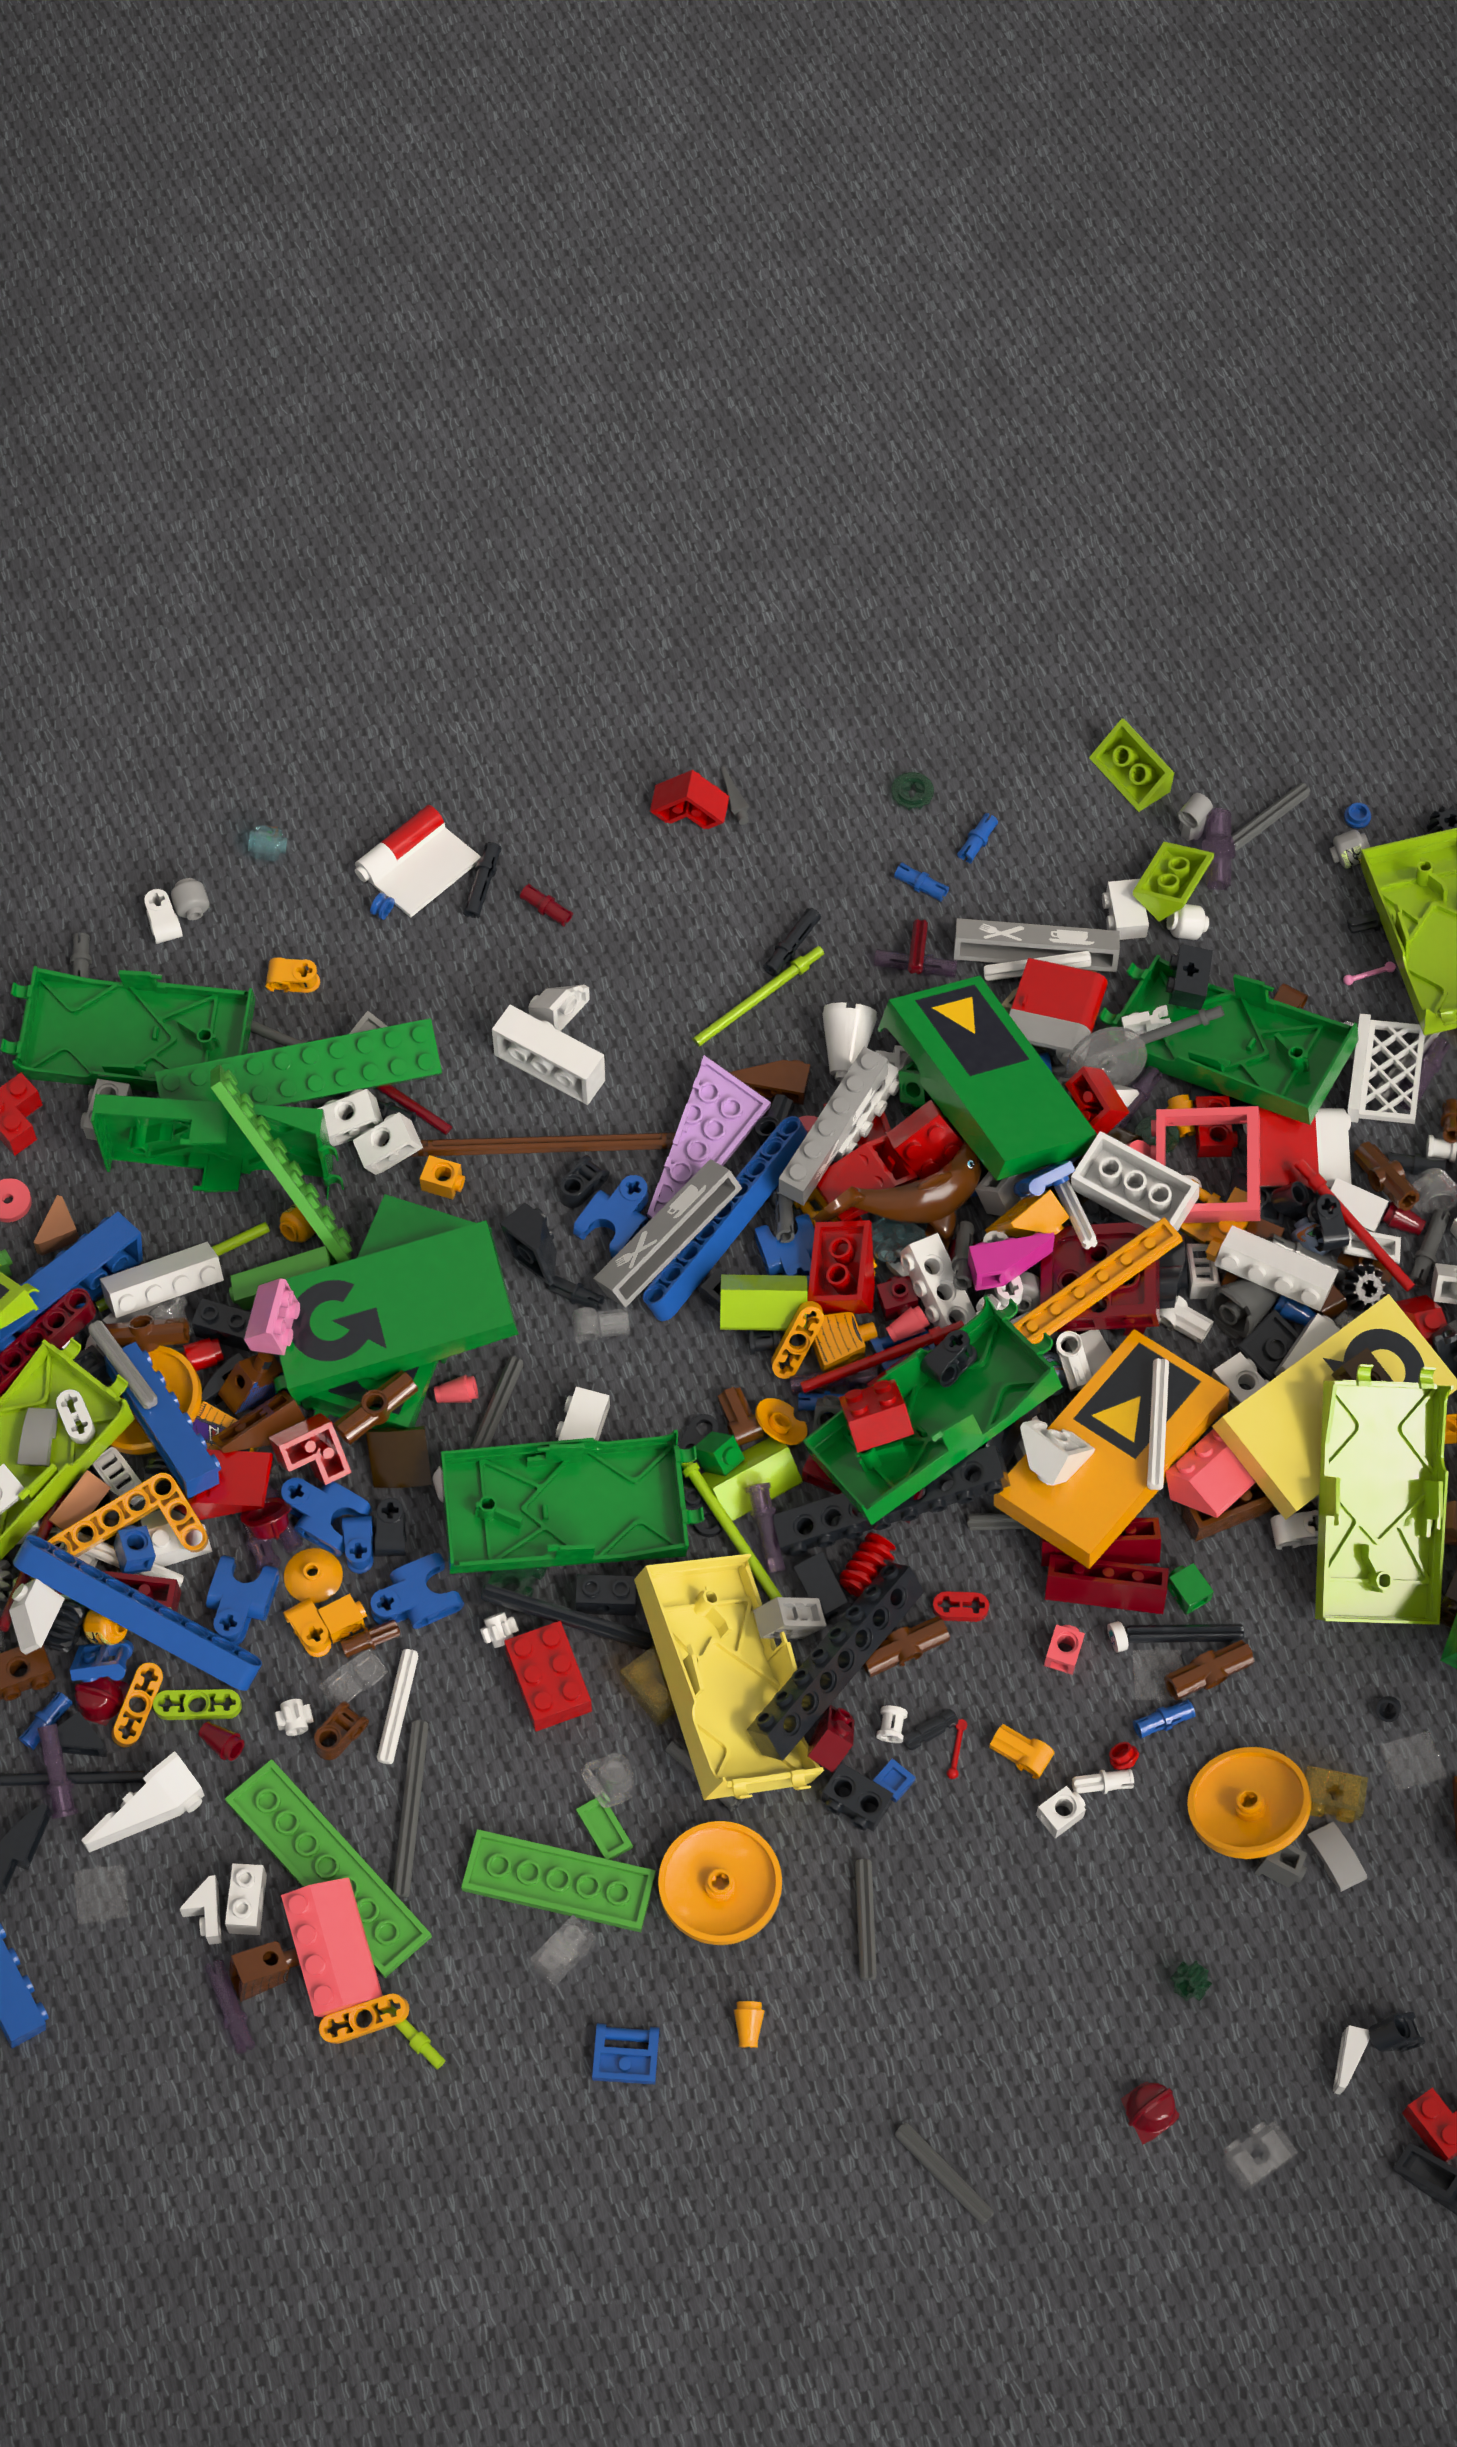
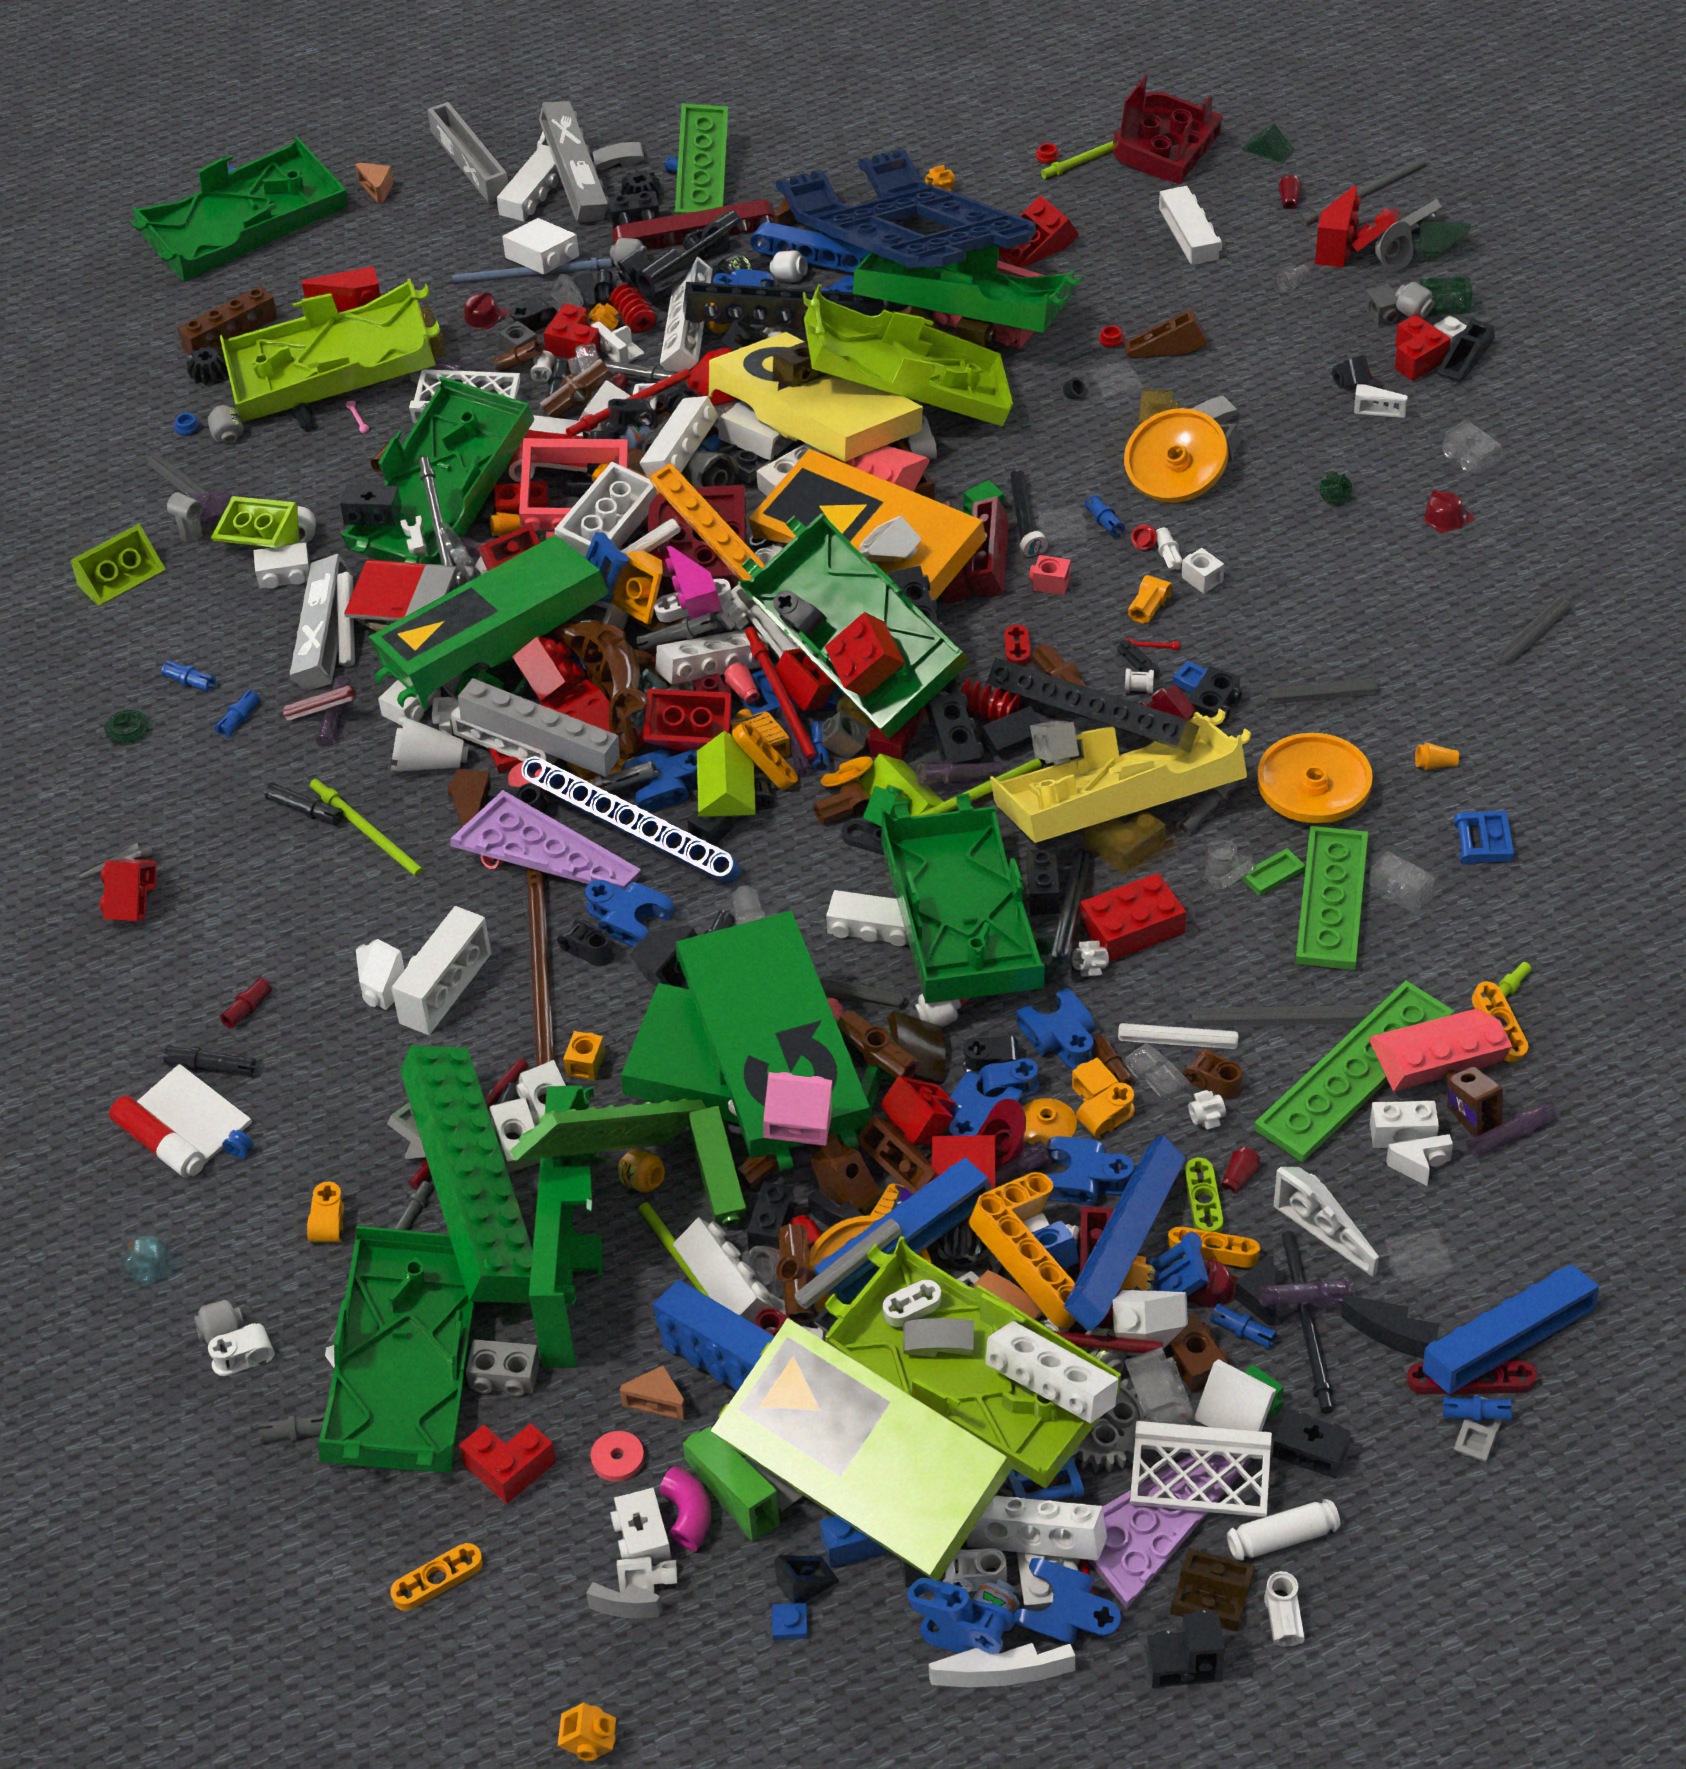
camera: 90 degrees left, 15 degrees down
(667, 1233) = (652, 856): light grey brick -> none
(1158, 1424) = (850, 485): white axle -> none
(1209, 1669) = (1057, 488): reddish brown piece -> none

